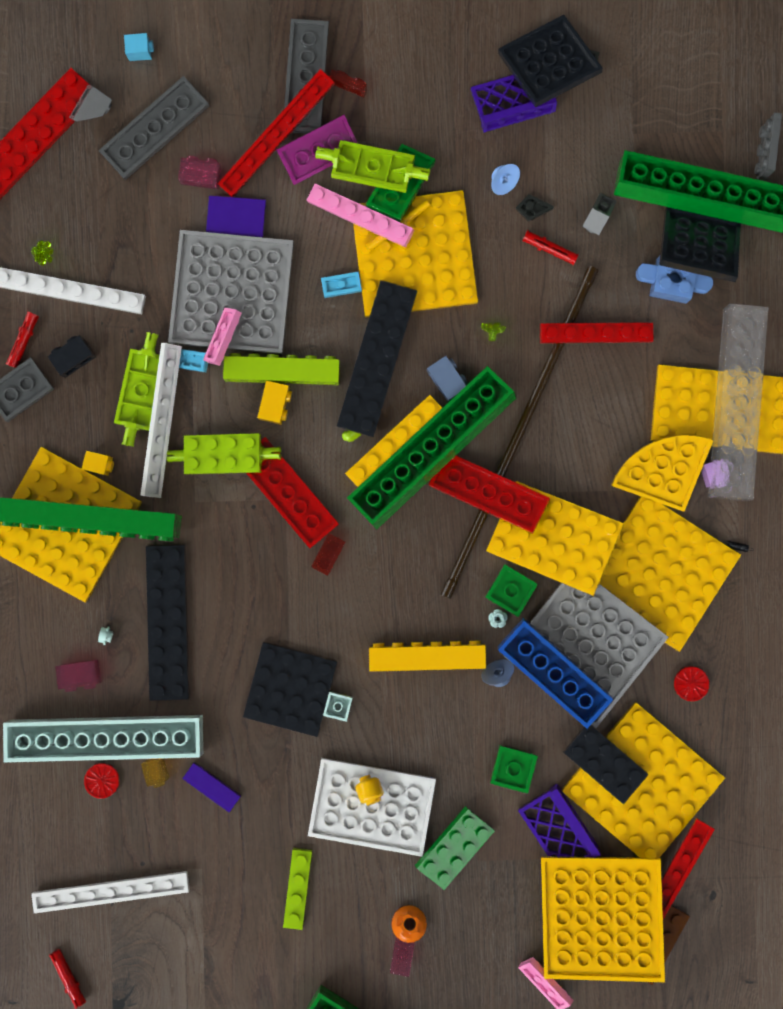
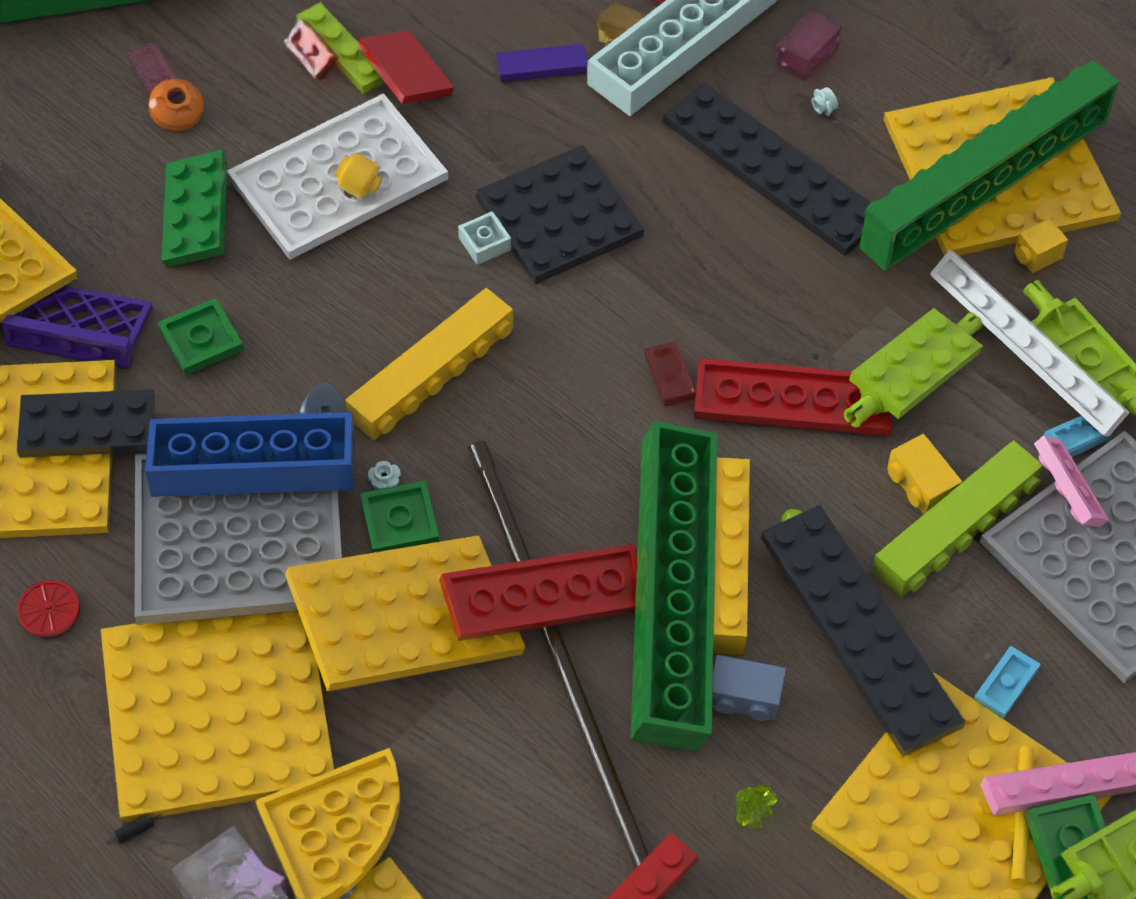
camera: 135 degrees right, 30 degrees down
(281, 843) = (405, 67): none -> red tile
(315, 898) = (311, 49): none -> clear red plate

